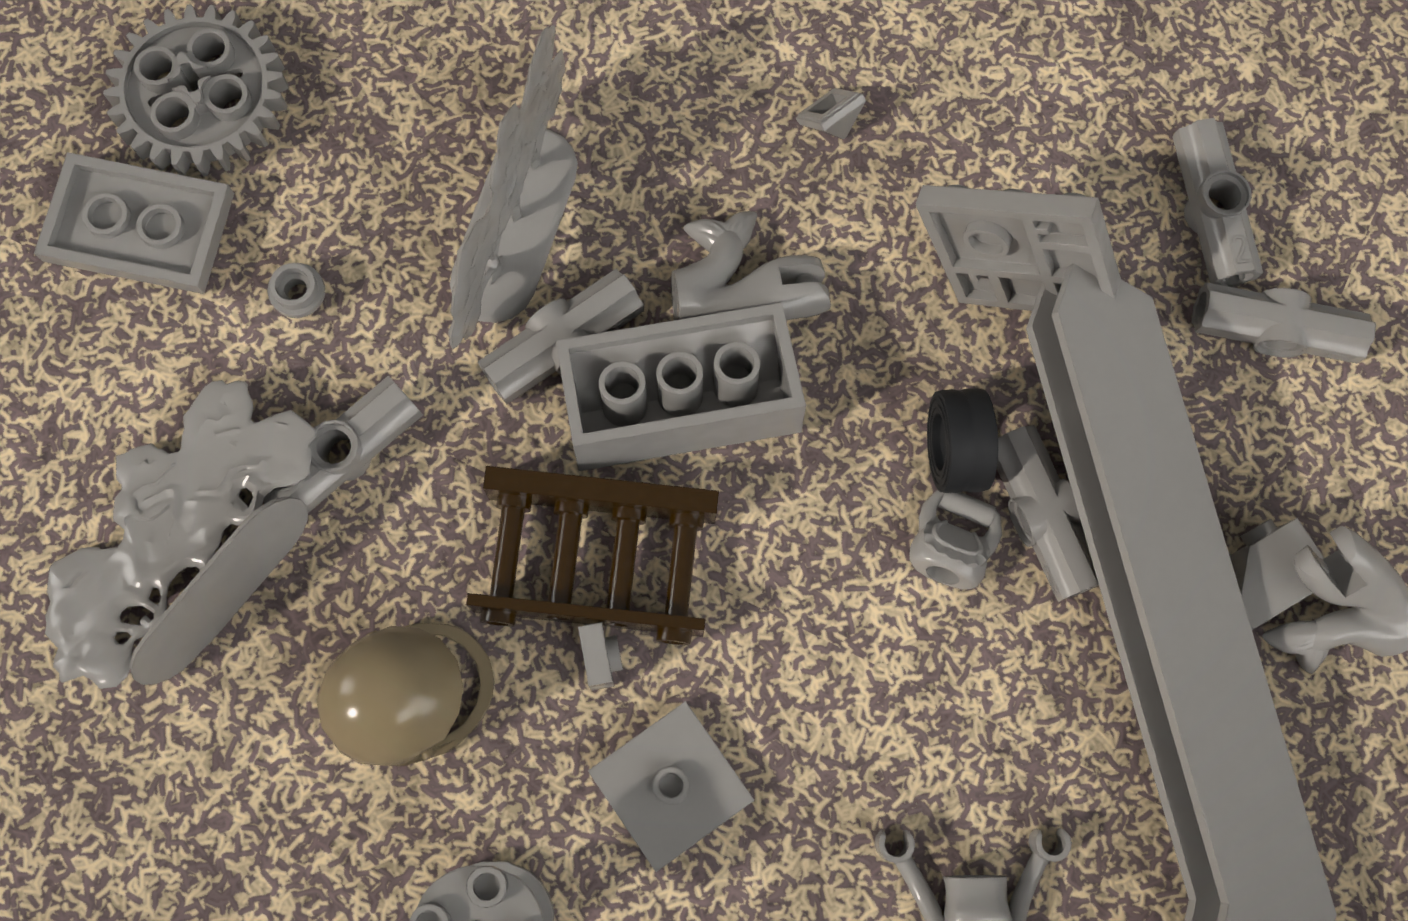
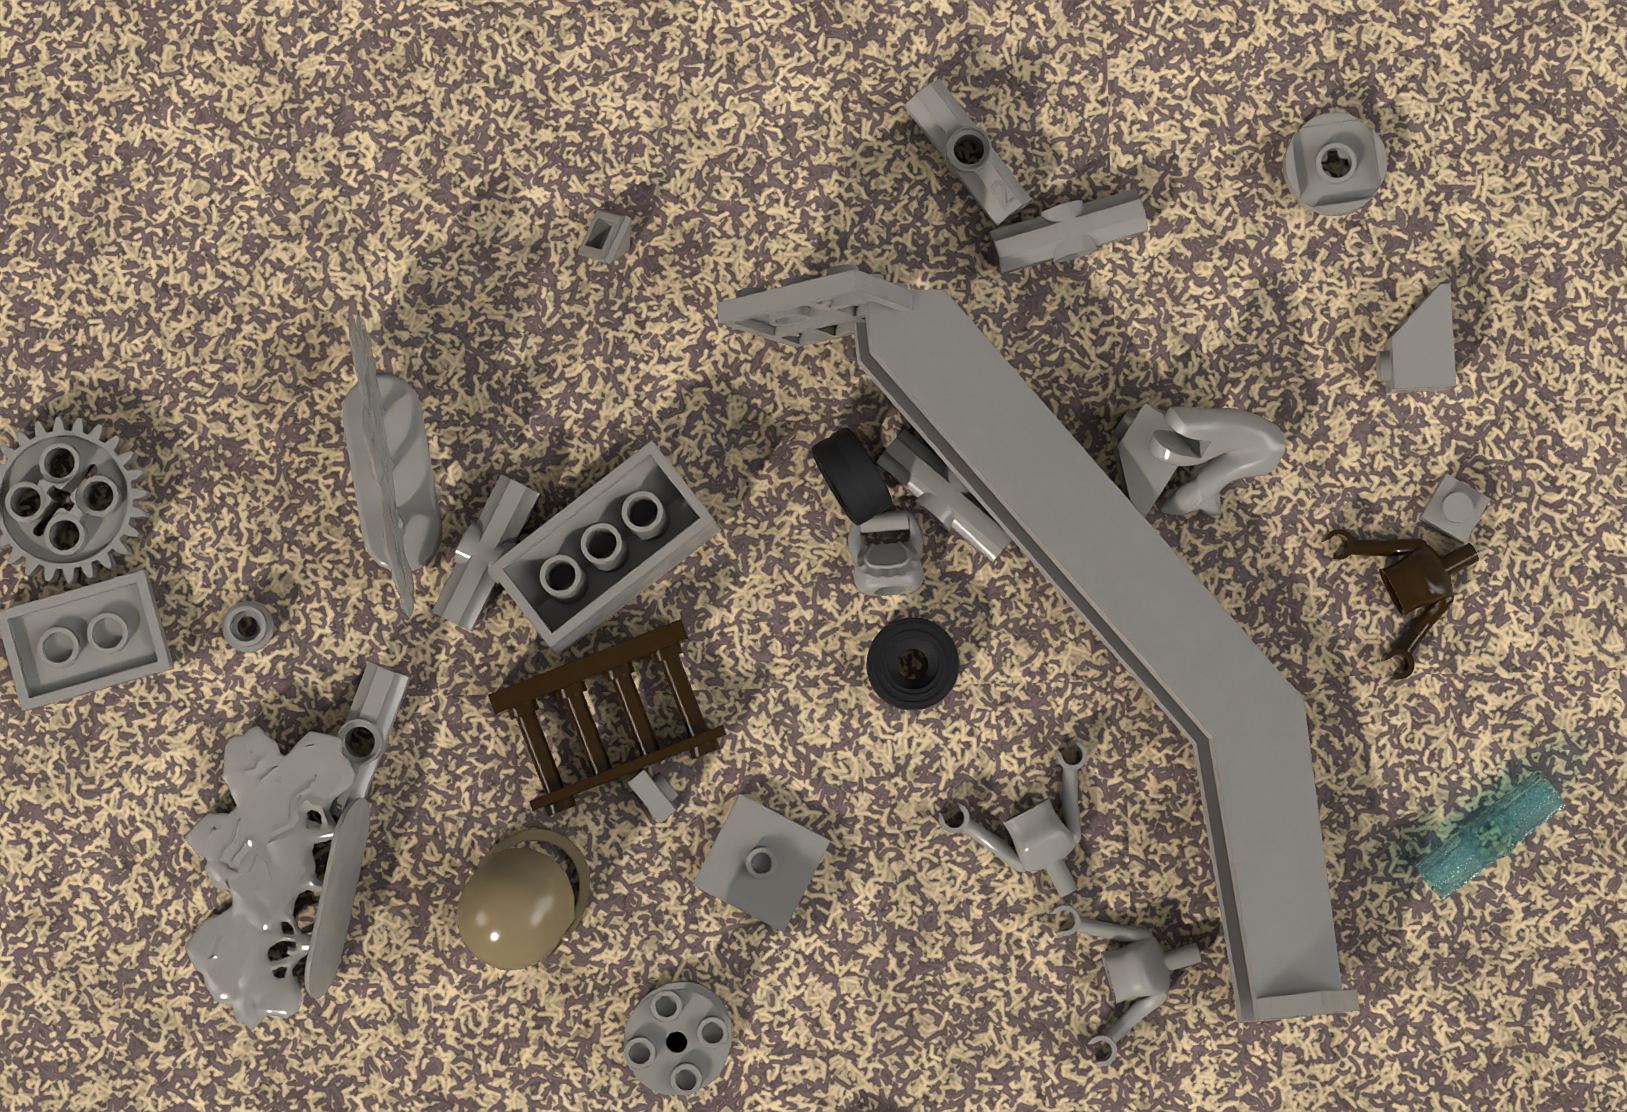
camera: 20 degrees left, 10 degrees up
(702, 285) = (584, 458): light grey piece -> none
(962, 657) = (940, 655): none -> black tyre

